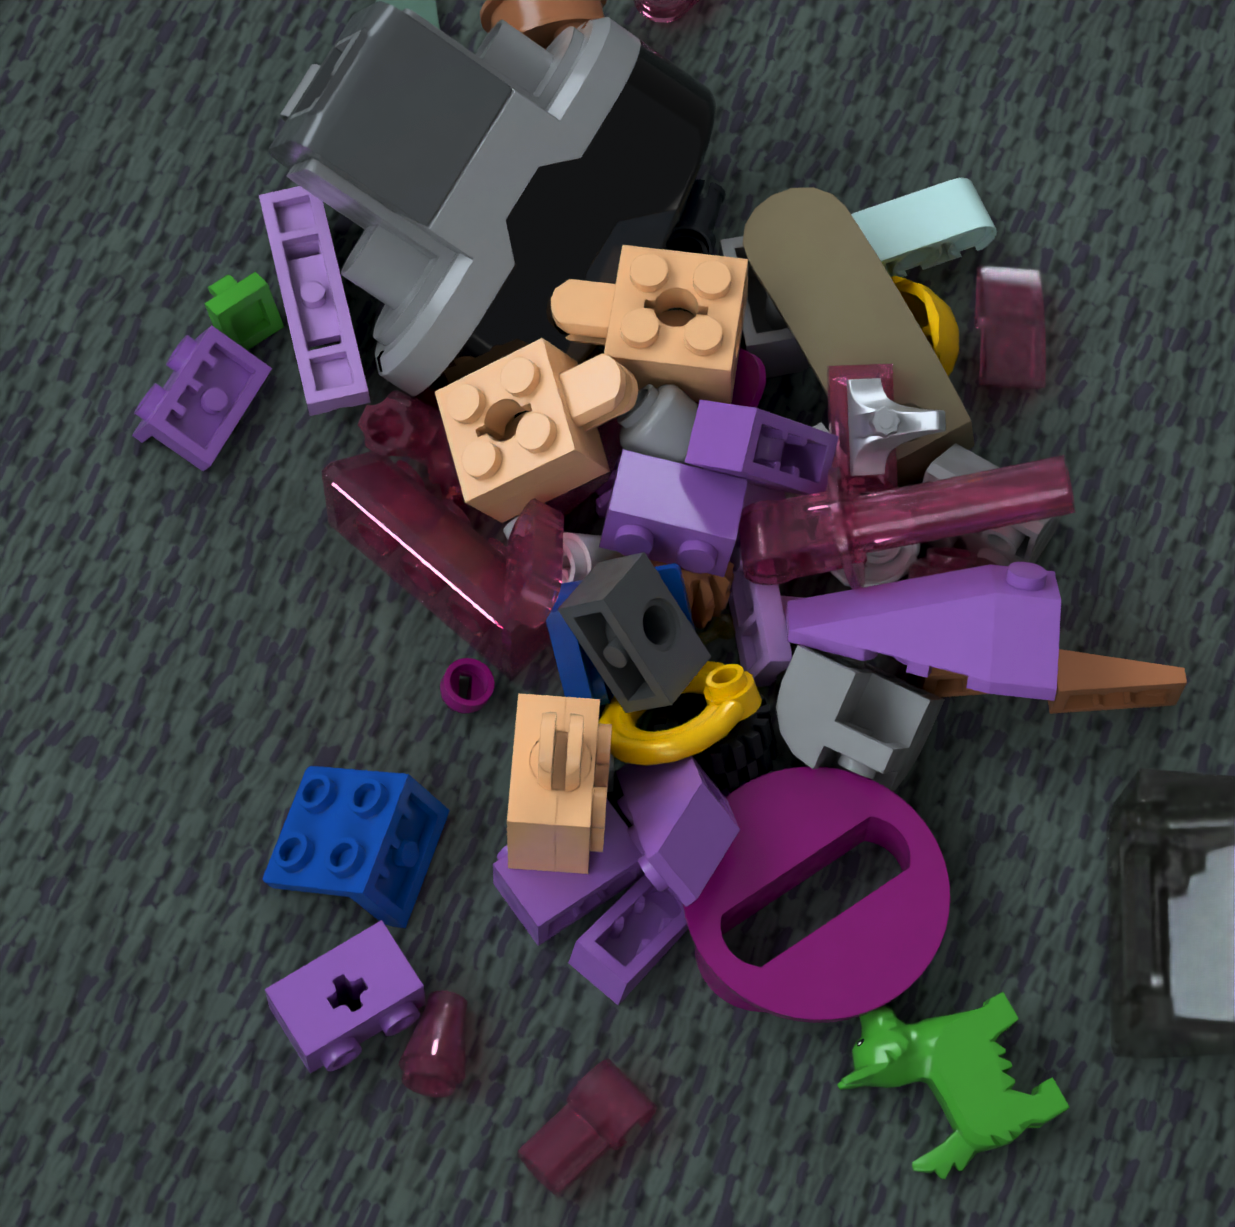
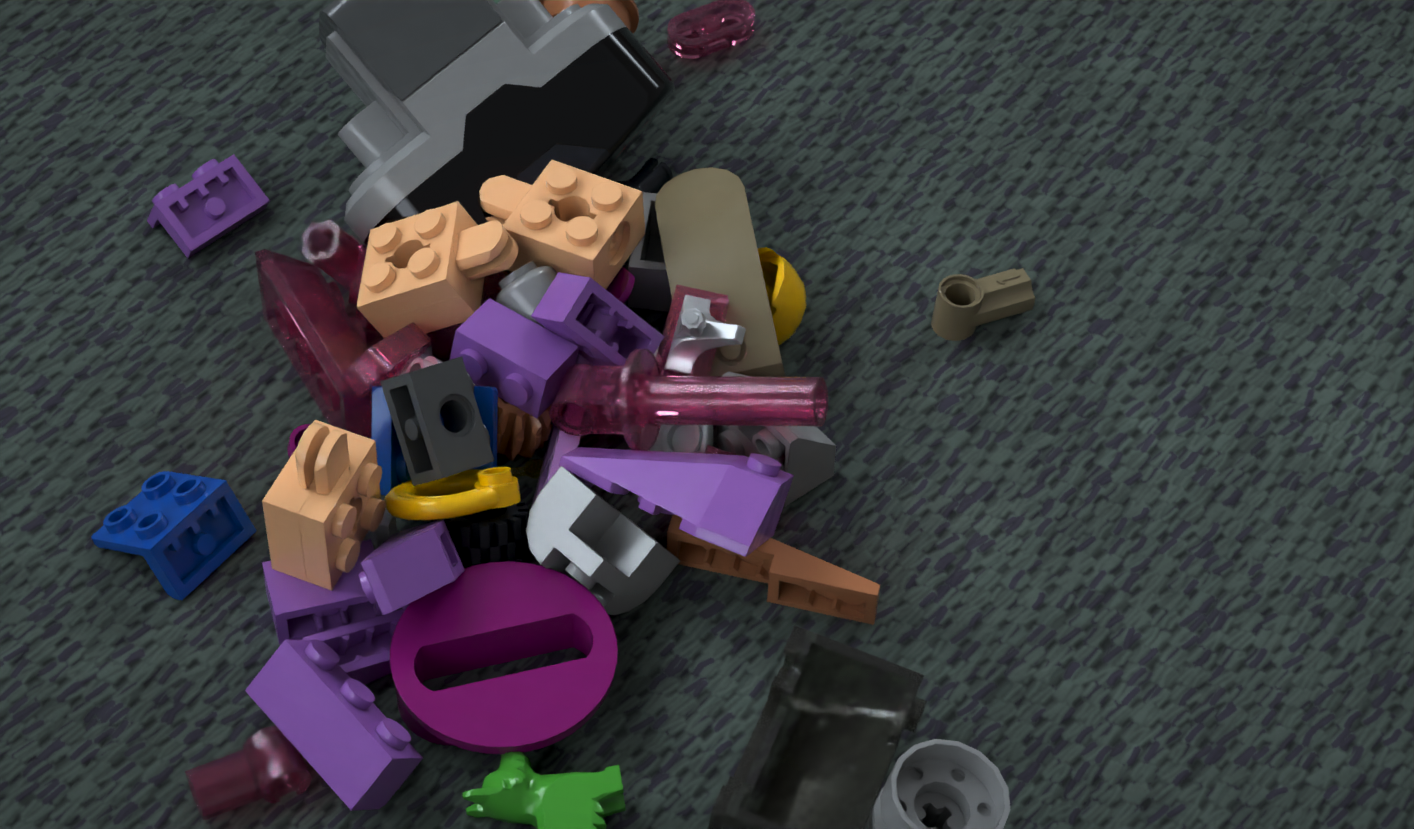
camera: 20 degrees right, 15 degrees down
(244, 309) = (267, 158): bright green tile -> none
(314, 300) = (319, 159): lavender hinge -> none
(368, 970) = (108, 628): medium lavender brick -> none
(436, 1049) = (160, 686): clear pink cone -> none
(663, 1040) = (334, 723): none -> medium lavender brick
(927, 226) = (817, 236): light aqua beam -> none
(1011, 327) = (856, 324): clear pink slope -> none
(1135, 258) = (971, 302): none -> dark tan piece

